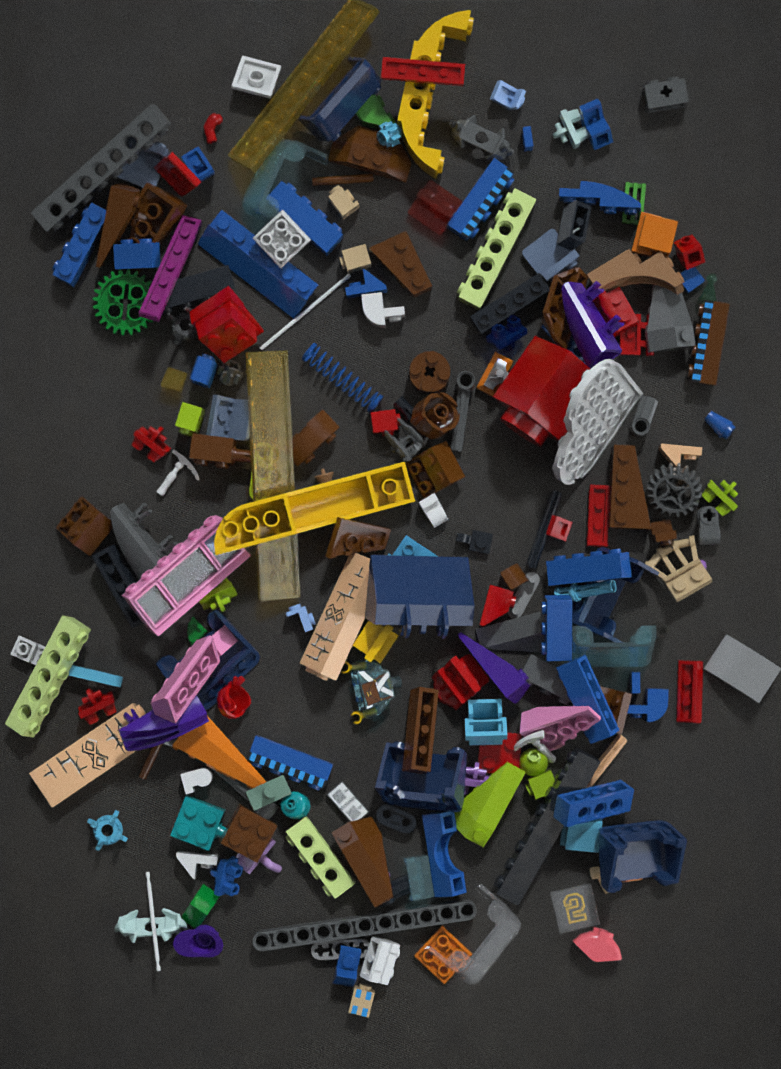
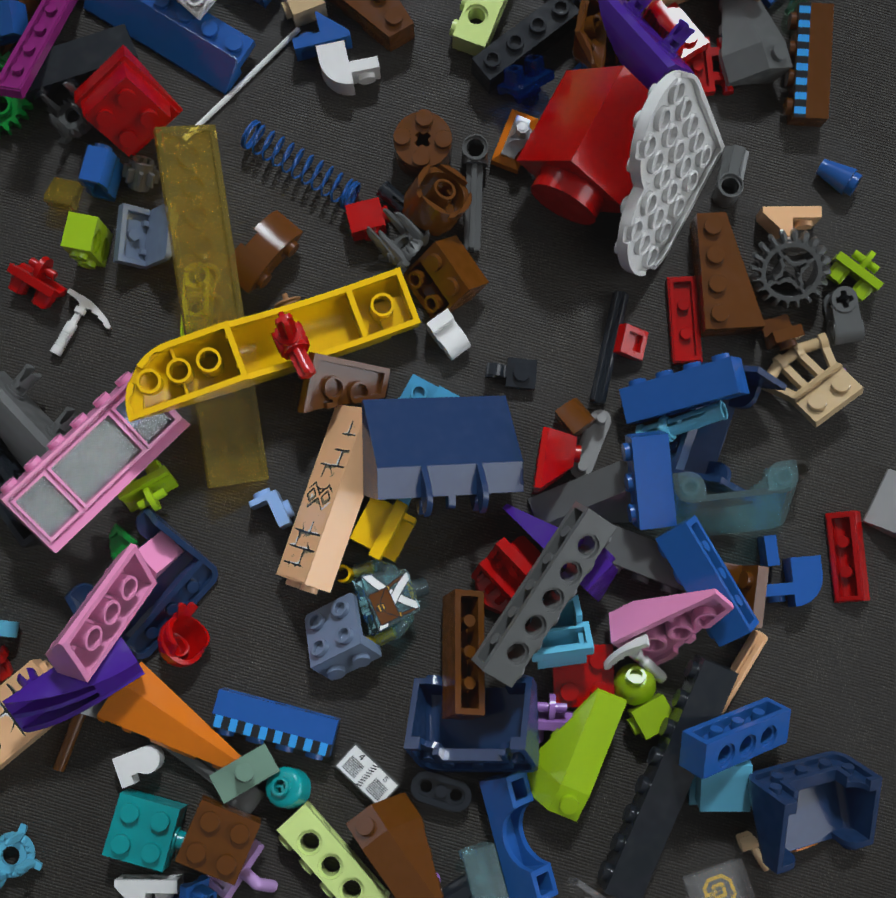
camera: 10 degrees left, 5 degrees down
(216, 451) = (126, 280): reddish brown brick -> none
(327, 511) = (293, 344): none -> red axle
(337, 710) = (337, 639): none -> sand blue bracket
(477, 686) = (528, 598): none -> dark grey brick

